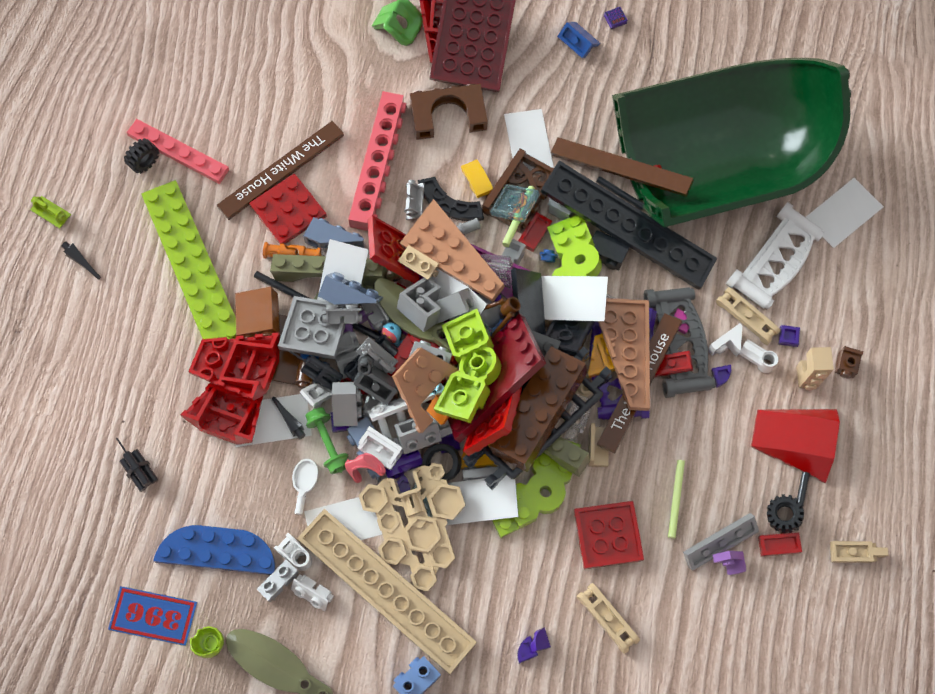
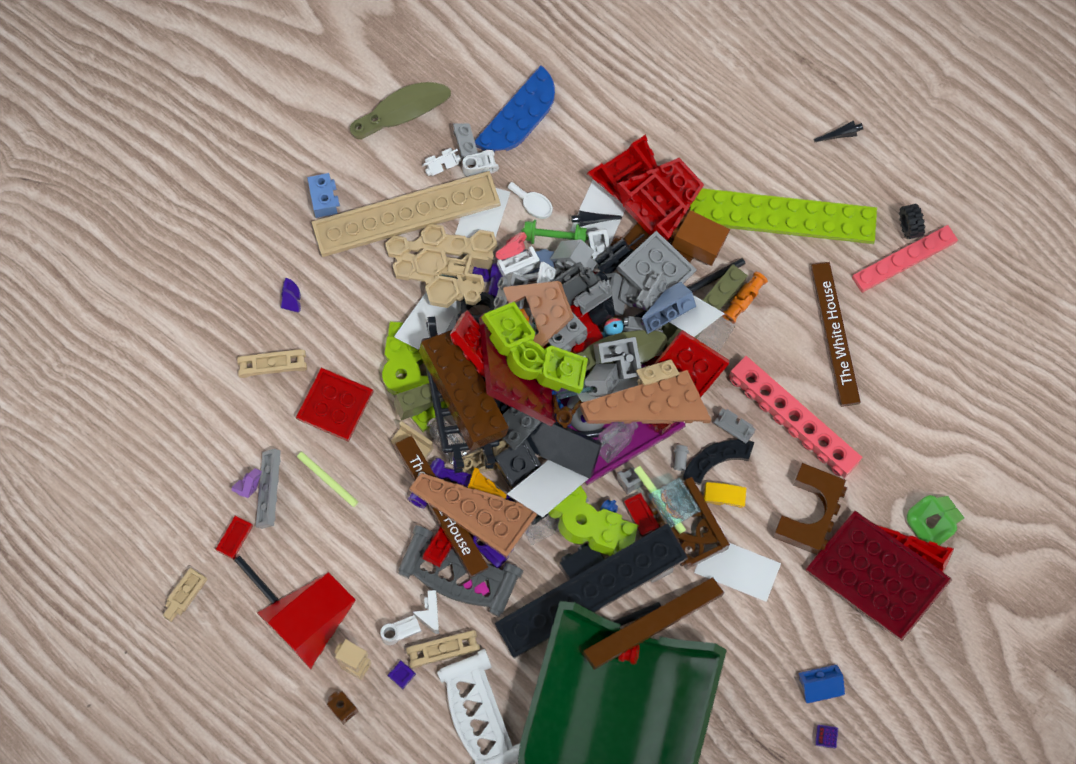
camera: 125 degrees right, 0 degrees up
(49, 211) = (902, 130): lime hinge -> none
(137, 468) = (623, 89): black piece -> none
(152, 615) = (499, 47): sticker -> none
(207, 642) = (451, 69): lime hair -> none
(287, 209) = (791, 318): red plate -> none
(320, 232) = (743, 333): sand blue slope -> none
(721, 374) = (406, 589): dark purple tile -> none
(794, 505) = (249, 565): black tyre -> none

